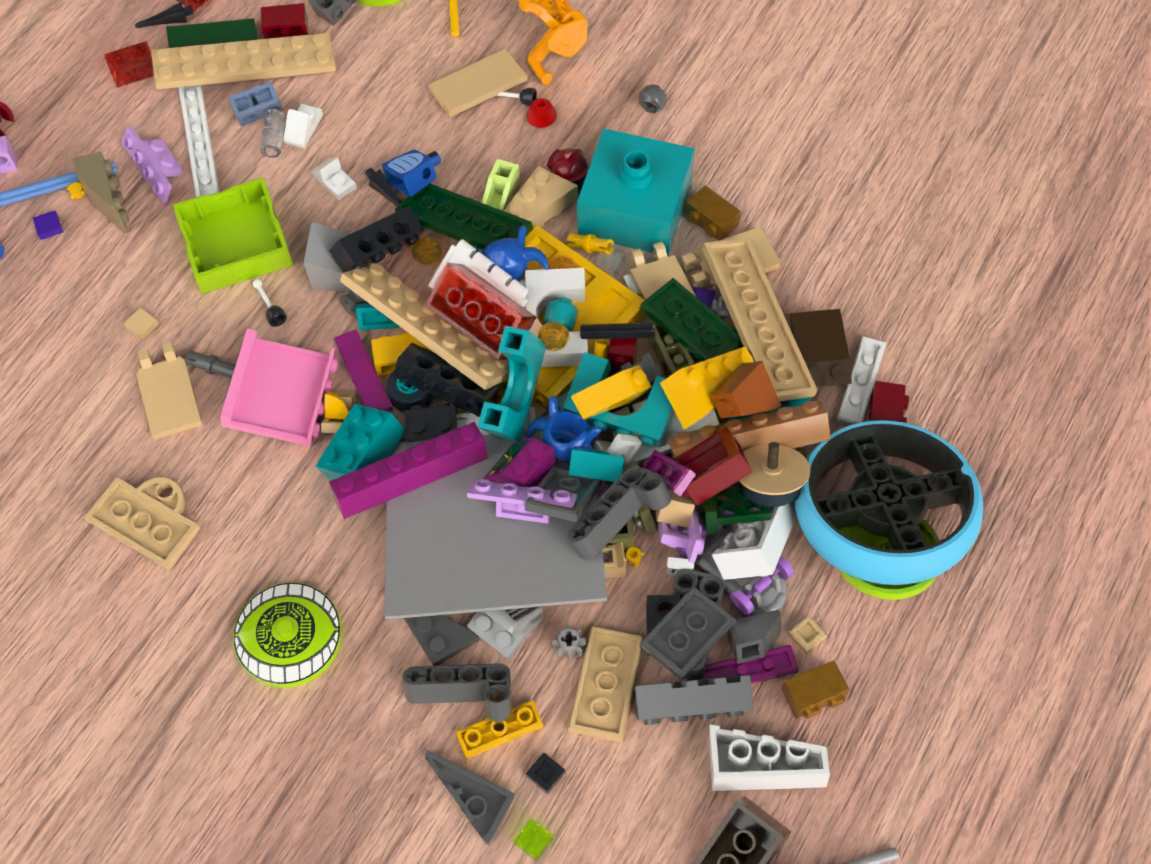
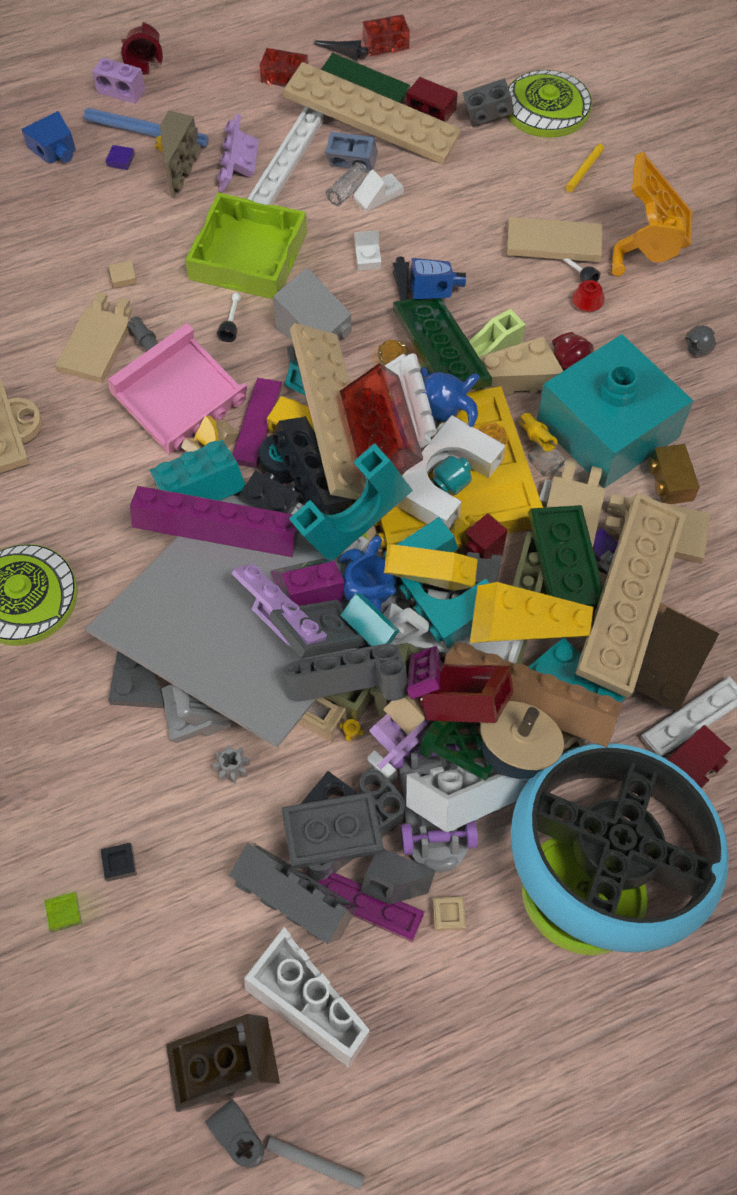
camera: 35 degrees right, 0 degrees up
(377, 240) = (387, 314): black brick -> none
(462, 684) = (132, 747): dark grey beam -> none
(478, 798) = (48, 842): dark grey wing -> none
(483, 736) = (131, 801): yellow tile -> none
(555, 342) = (426, 493): clear yellow plate -> none
(606, 684) = (239, 817): tan tile -> none
(617, 331) = (487, 518): black axle -> none
(746, 392) = (552, 647): dark orange slope -> none
(816, 690) = (411, 971): pearl gold brick -> none

